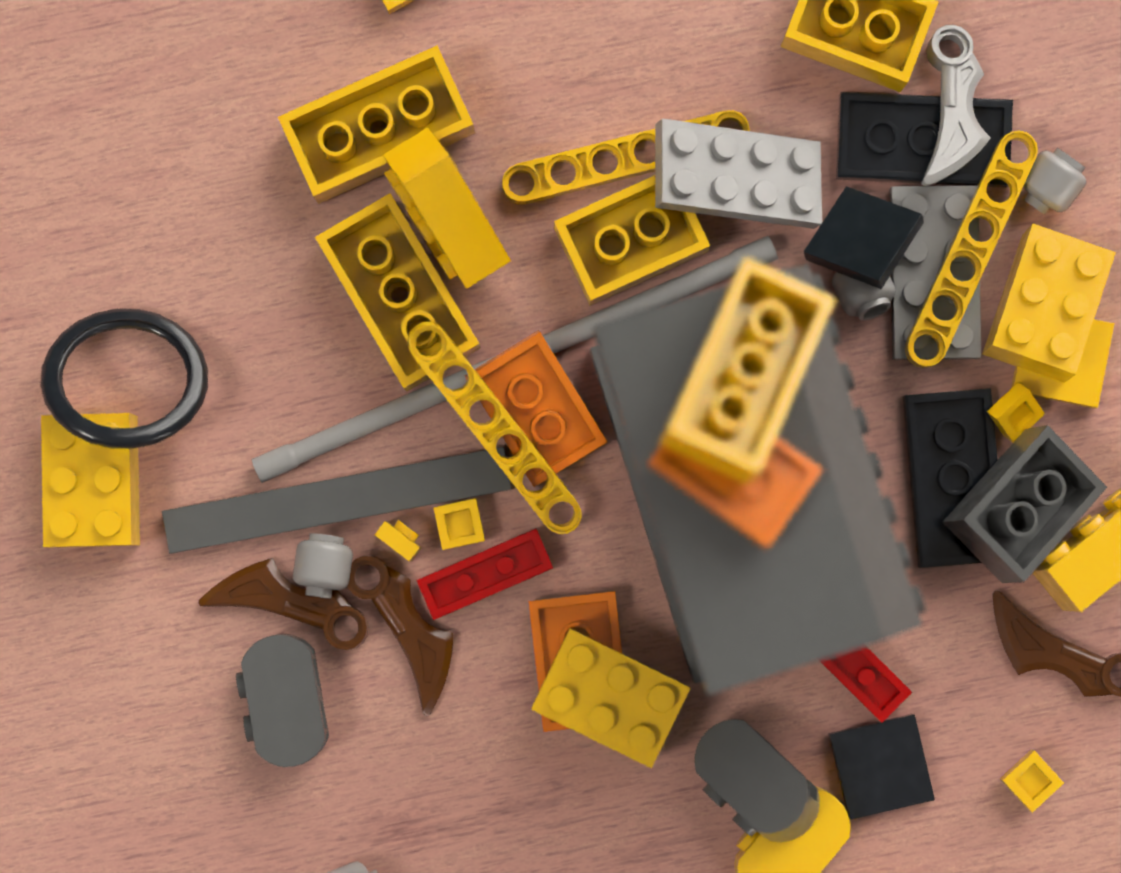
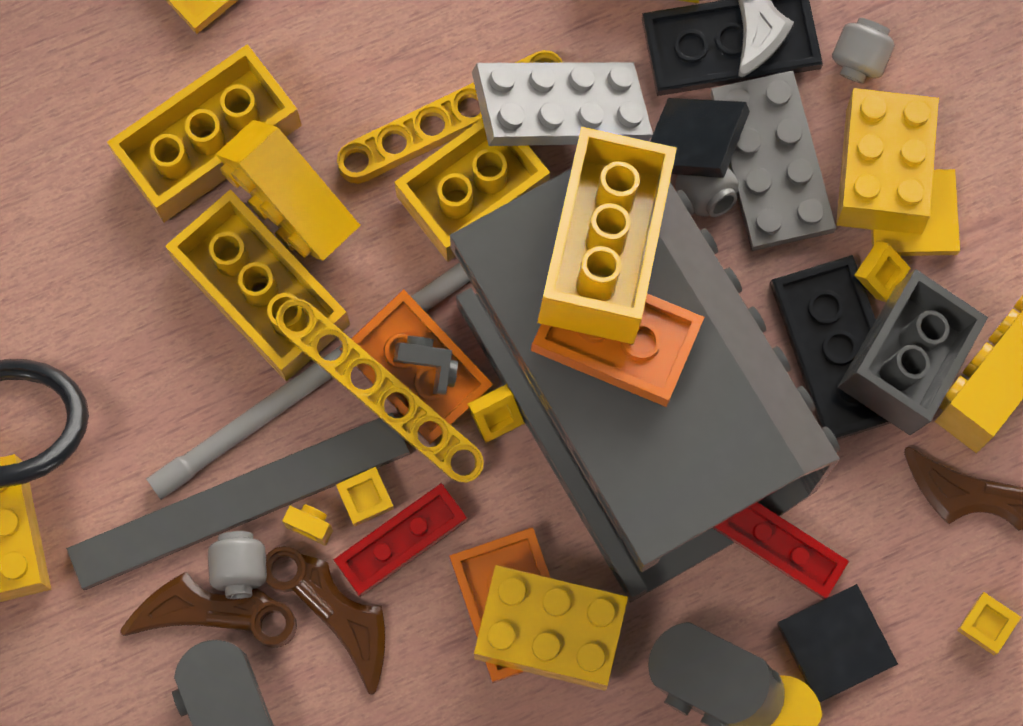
camera: 10 degrees left, 10 degrees down
(544, 402) = (421, 352): none -> dark grey bracket
(604, 471) = (496, 413): none -> yellow plate
(977, 252) = (797, 126): yellow beam -> none

